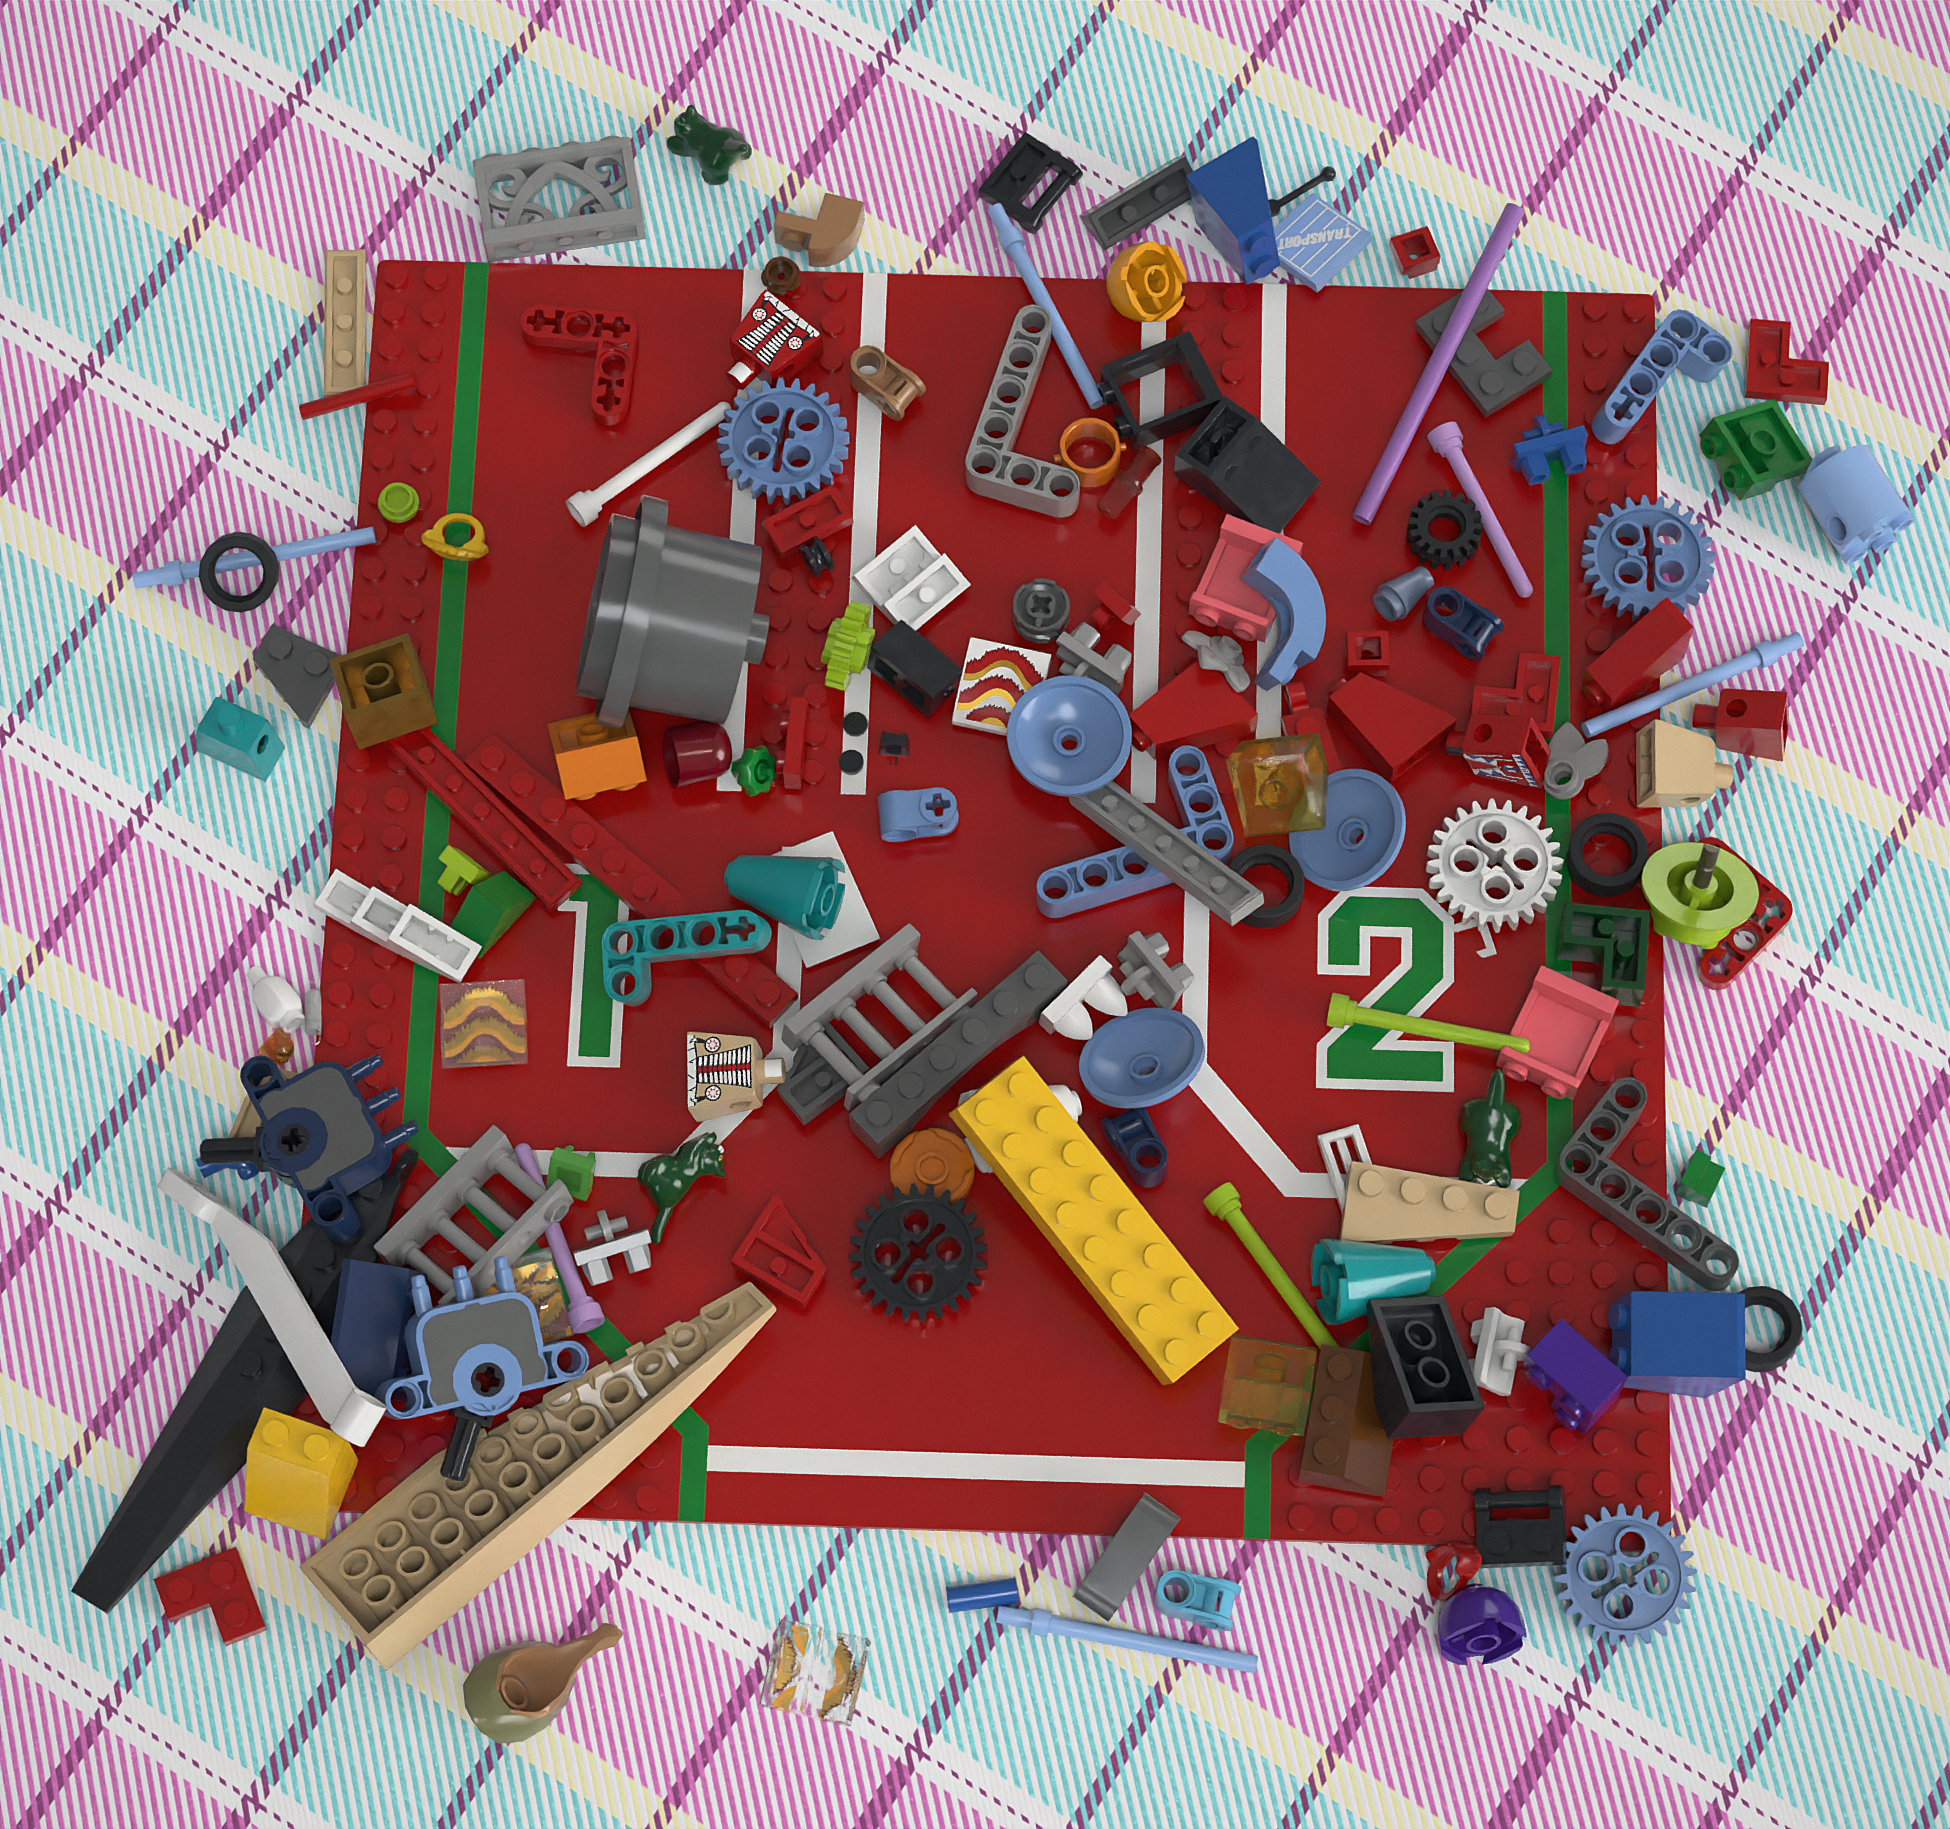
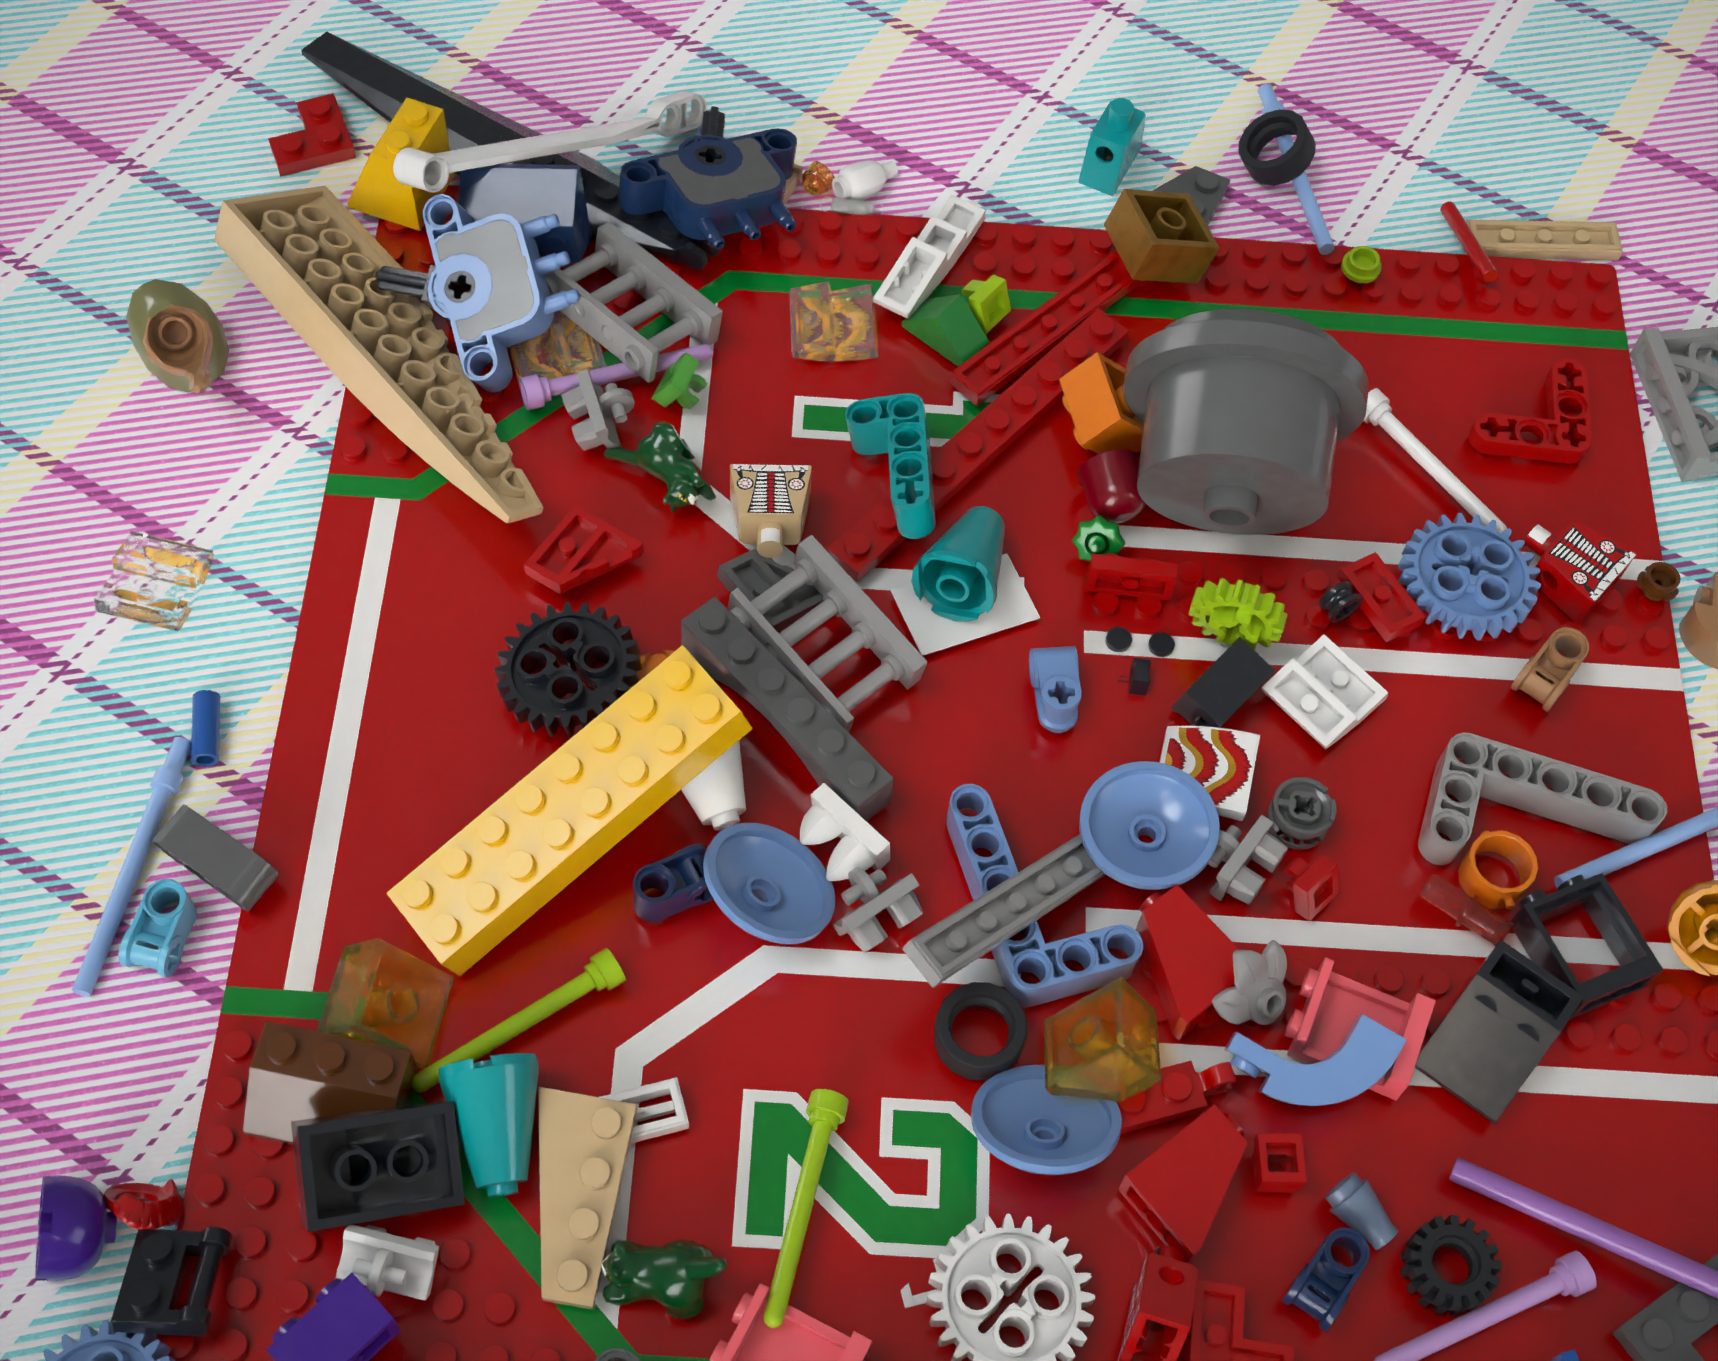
camera: 85 degrees right, 10 degrees down
(469, 551) = (1326, 288): yellow piece -> none

